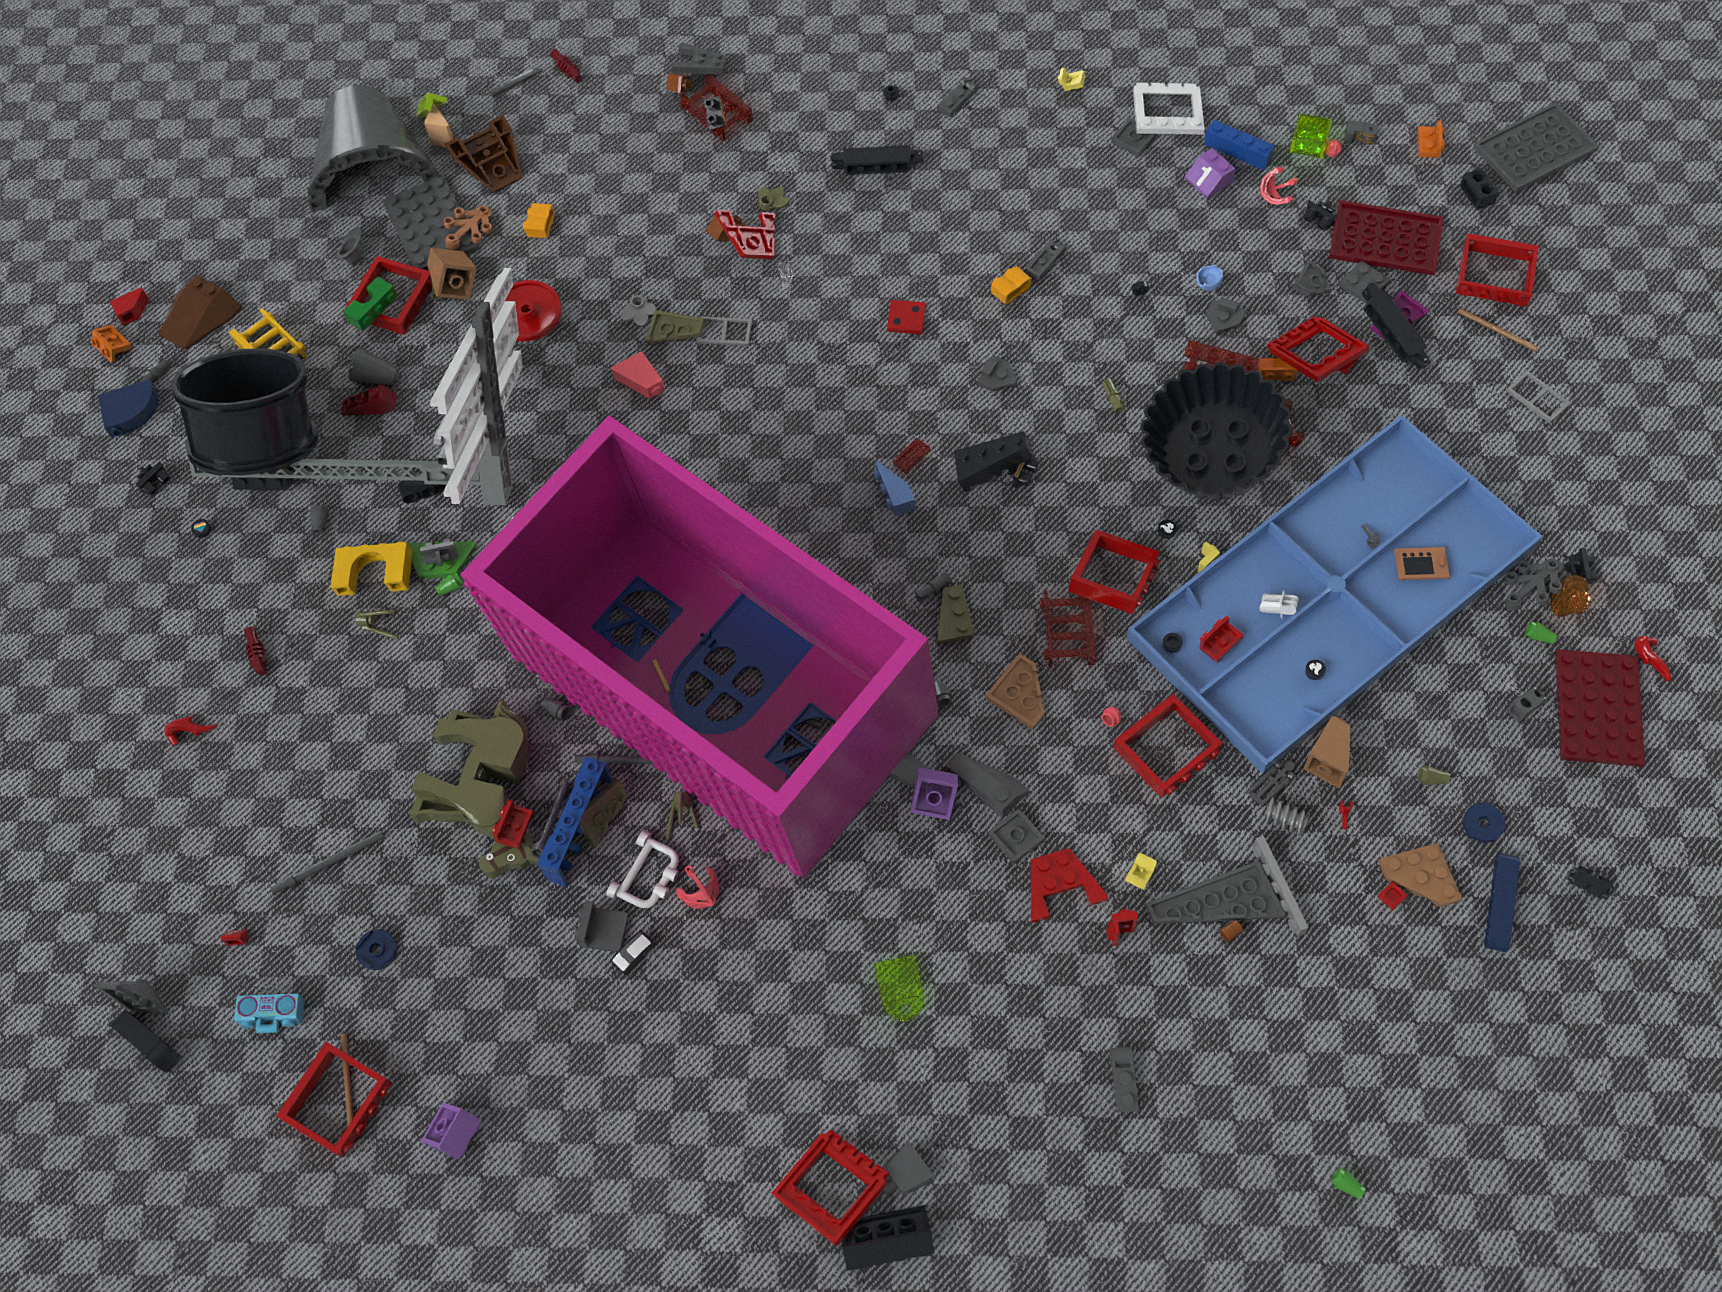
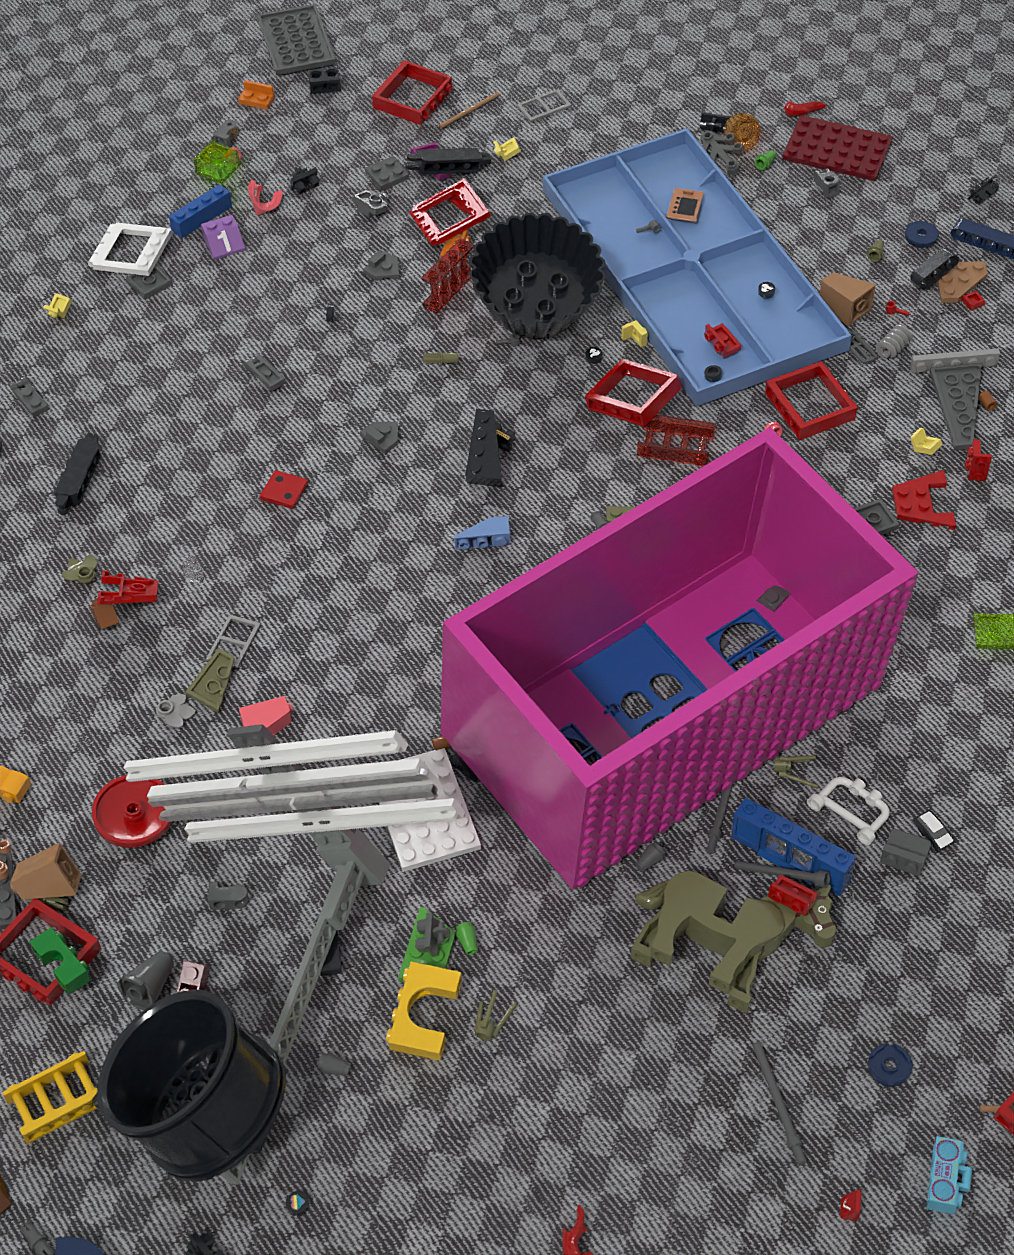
camera: 80 degrees left, 10 degrees down
(255, 651) = (493, 1152): dark red hinge -> none
(704, 893) = (891, 757): coral helmet -> none
(911, 455) = (448, 517): clear red tile -> none
(1010, 285) = (284, 402): light orange brick -> none
(1209, 278) = (341, 263): light blue hair -> none
(1279, 604) = (700, 294): white arm -> none
(1386, 237) = (348, 147): dark red plate -> none
(1418, 840) = (934, 268): none -> black beam
(1443, 377) = (507, 149): none -> light yellow bracket

